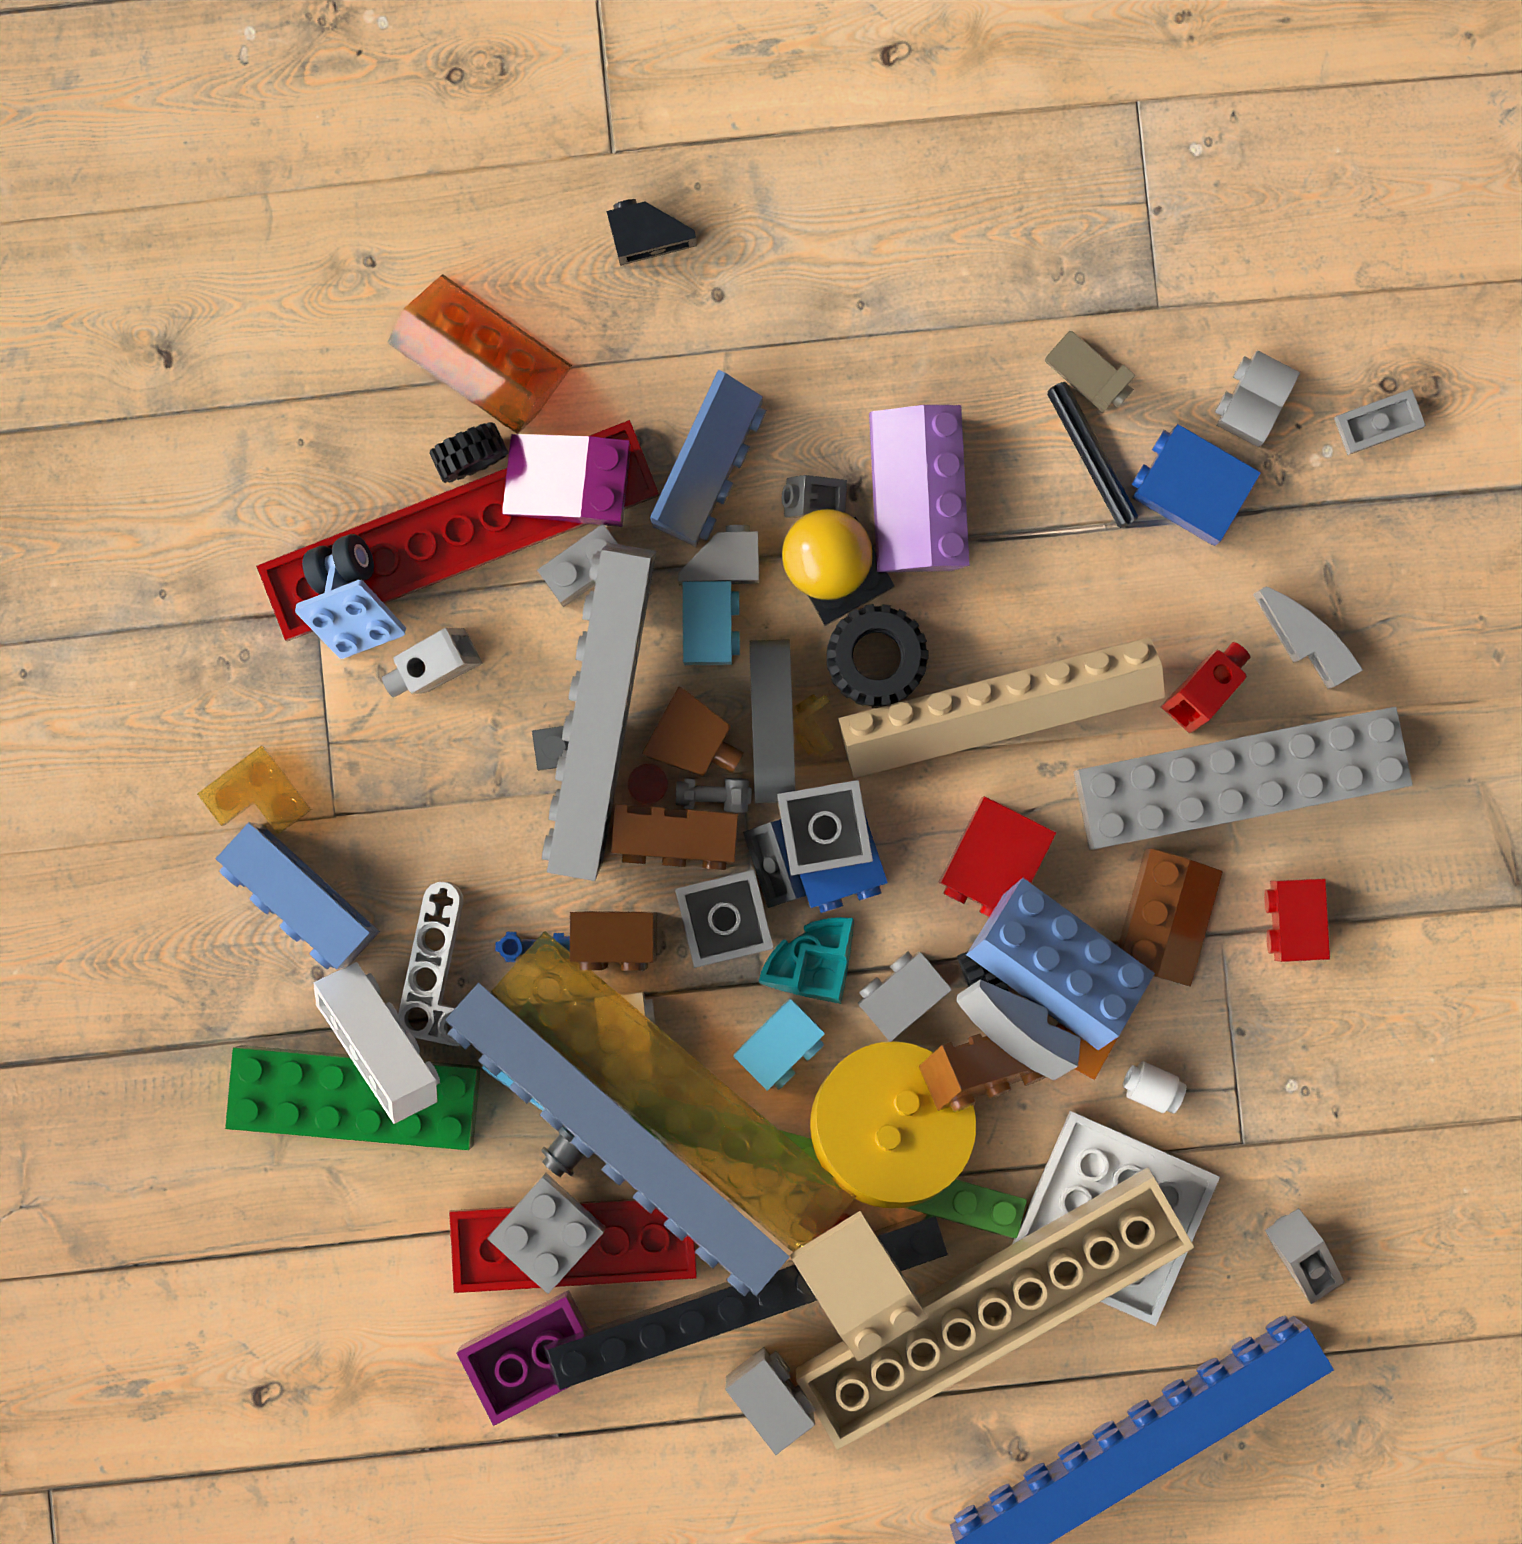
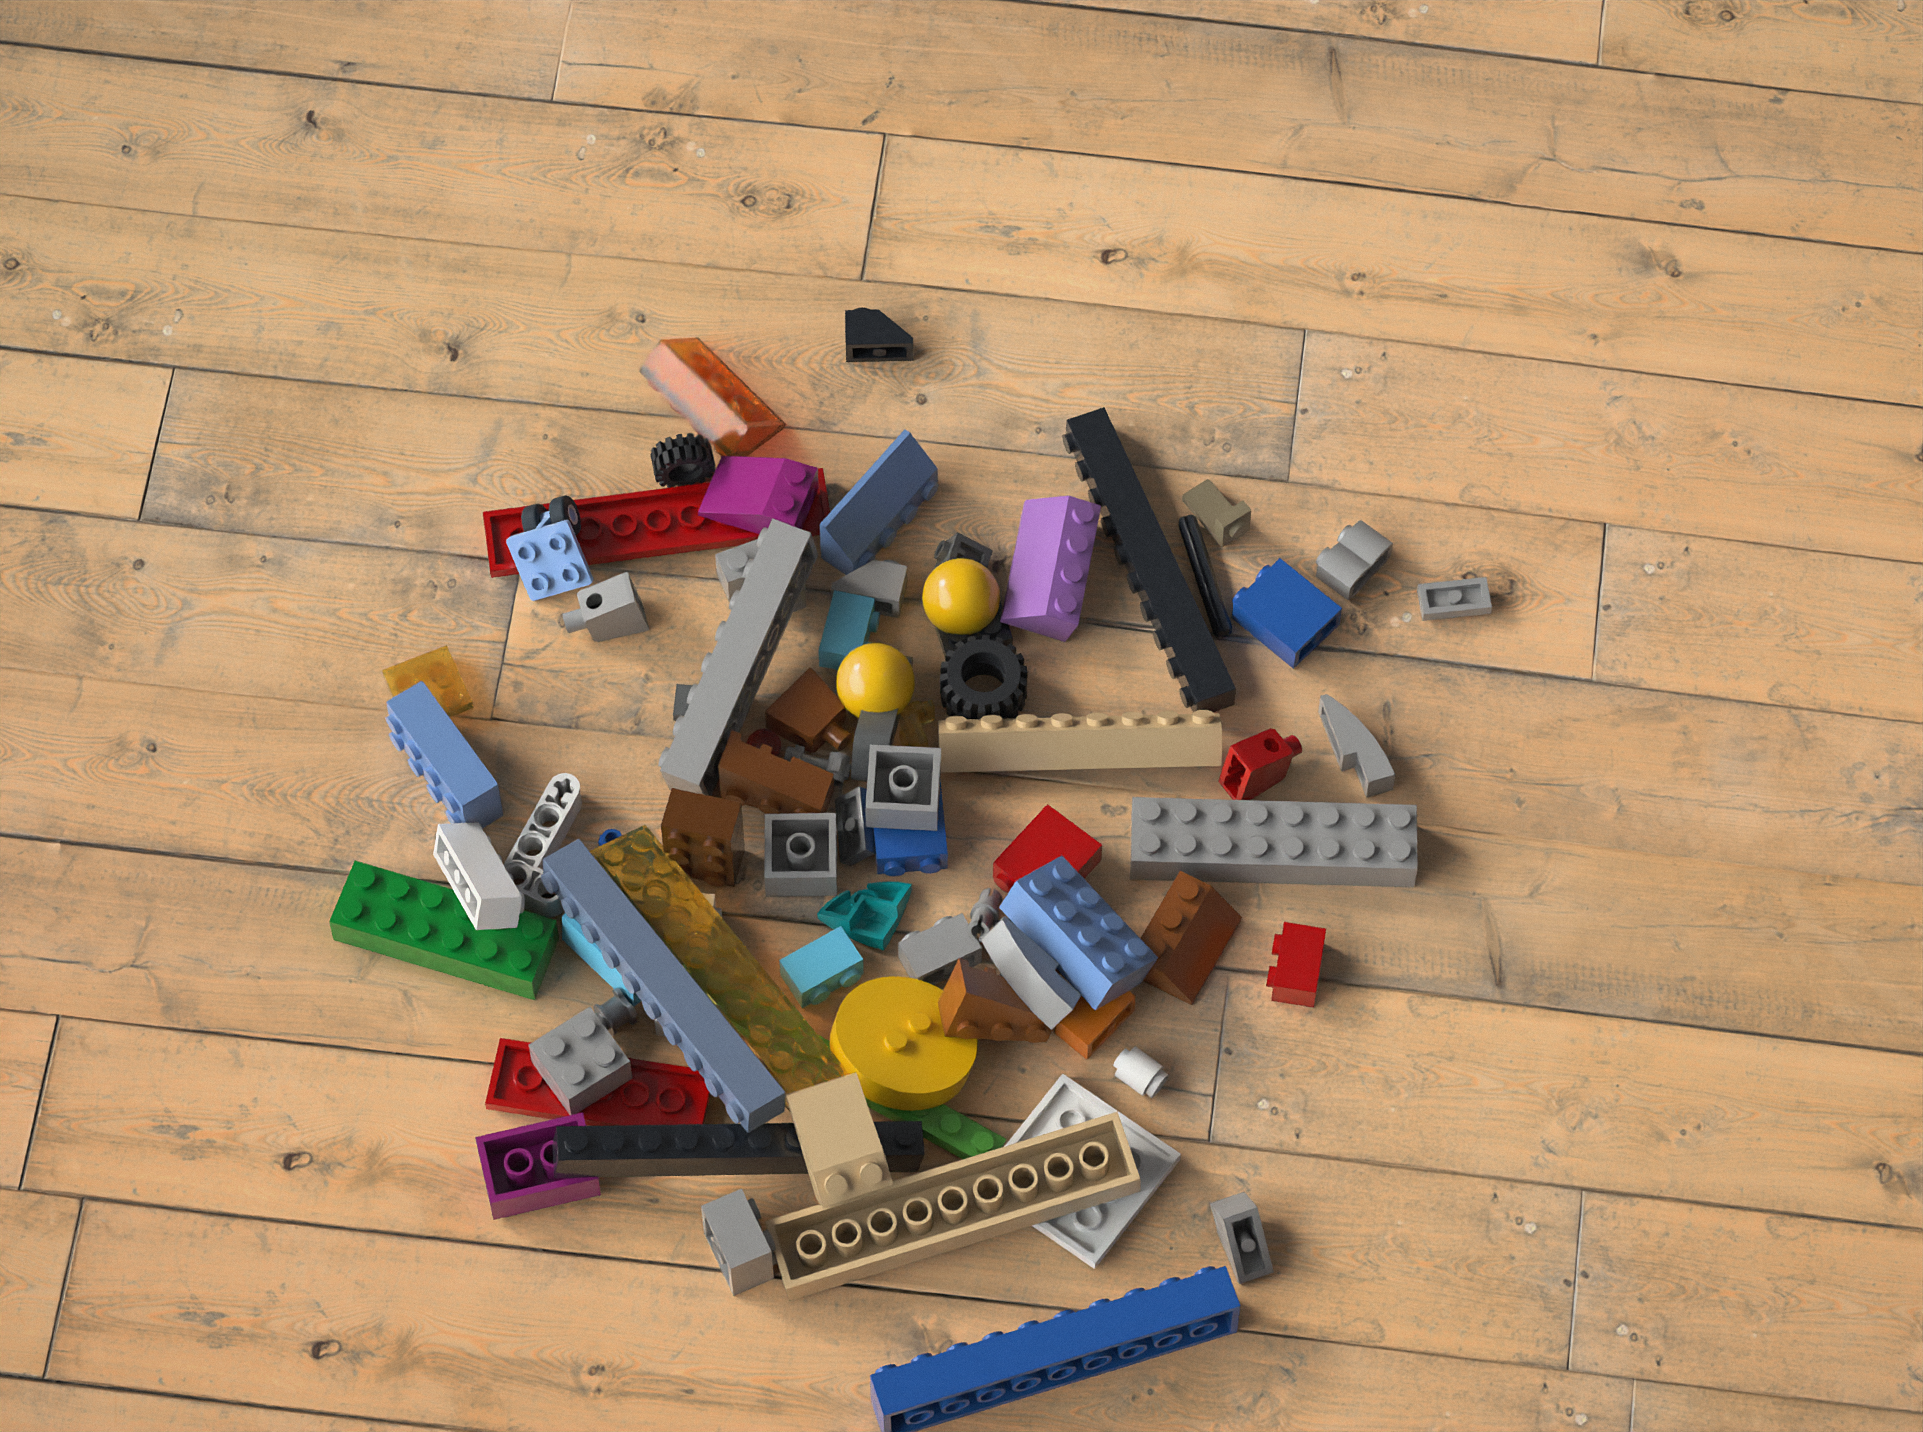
camera: 15 degrees right, 25 degrees down
(758, 693) = (875, 679): none -> yellow piece
(944, 945) = (984, 913): none -> light grey pin
(1026, 453) = (1149, 562): none -> black brick

